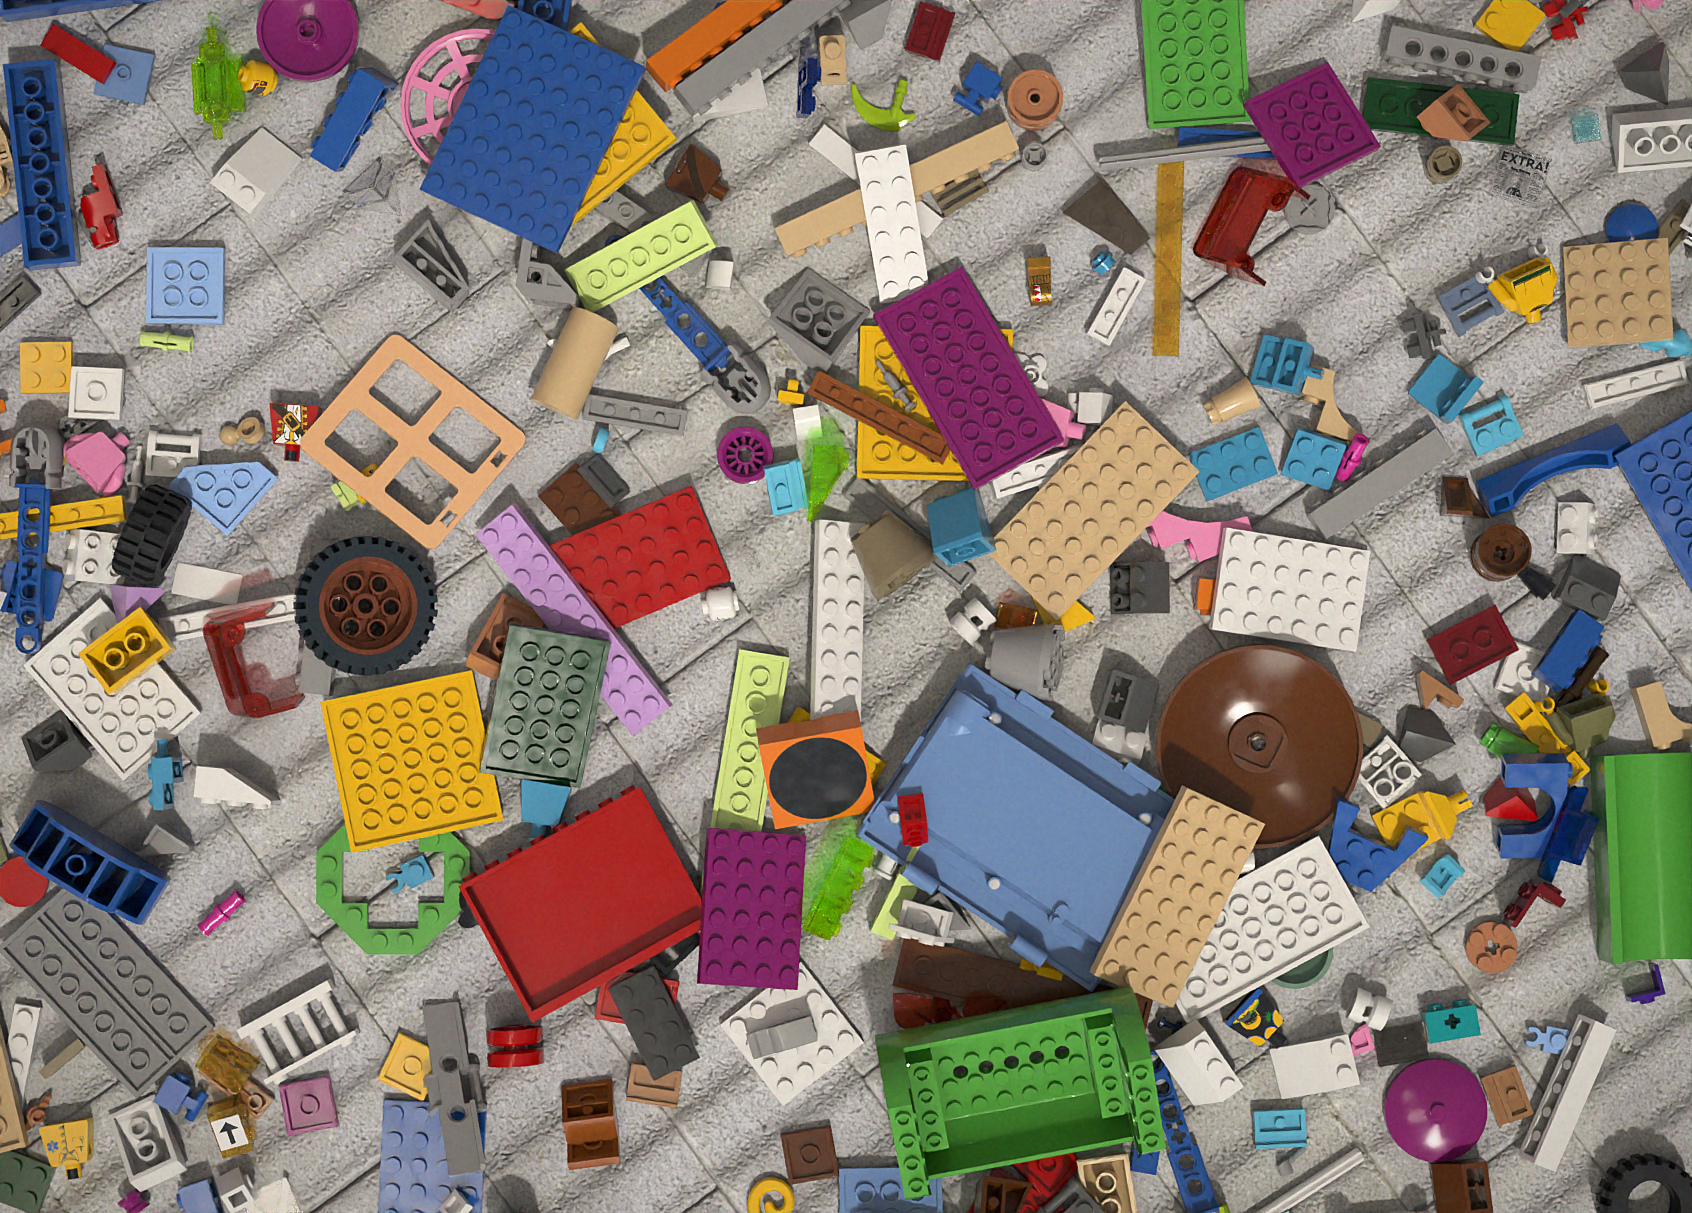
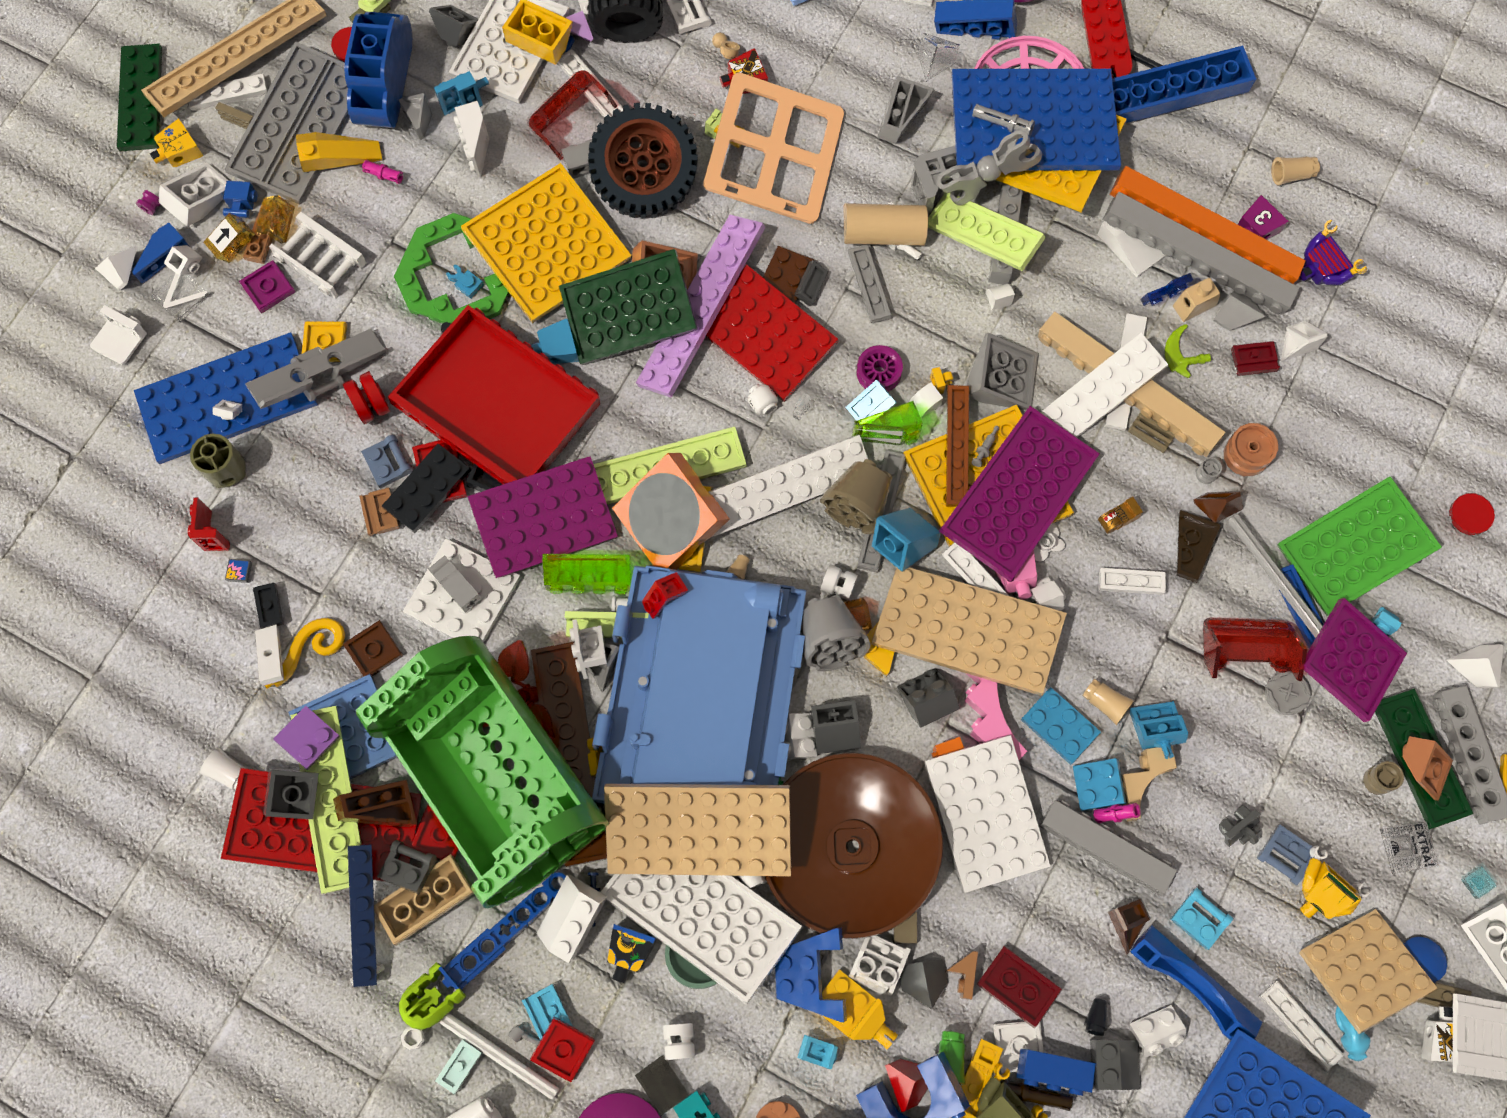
camera: 65 degrees right, 15 degrees down
(36, 1113) = (189, 118): nougat piece -> none
(164, 964) = (329, 151): none -> yellow wedge
(206, 584) = (610, 69): white sticker -> none
(224, 490) = (679, 49): light blue plate -> none
(536, 163) = (981, 112): none -> light grey pin
(580, 219) = (1005, 159): none -> light grey piece
(590, 1124) = (329, 476): dark orange bracket -> none
(598, 1061) = (381, 465): none -> sand blue plate
(601, 440) = (839, 268): medium azure tile -> none
(697, 177) = (1060, 249): reddish brown torso -> none
(714, 353) = (941, 315): piece -> none
(907, 724) = (739, 566): none -> tan cone
(980, 84) = (1238, 409): blue brick -> none
(1077, 170) = (1219, 504): none -> reddish brown slope
(1102, 262) = (1159, 555): dark azure plate -> none
(1144, 1163) = (475, 914): blue plate -> none
(1168, 259) = (1189, 604): clear yellow plate -> none
(1285, 64) = (1386, 621): none -> medium azure bracket
(1314, 1065) = (611, 1018): white slope -> none
(1322, 1128) = (562, 1049): none -> red tile
(1361, 1040) = (649, 1049): bright pink tile -> none
(1444, 389) = (1210, 865): dark azure bracket -> none
(1513, 545) = (1118, 971): reddish brown wheel -> none

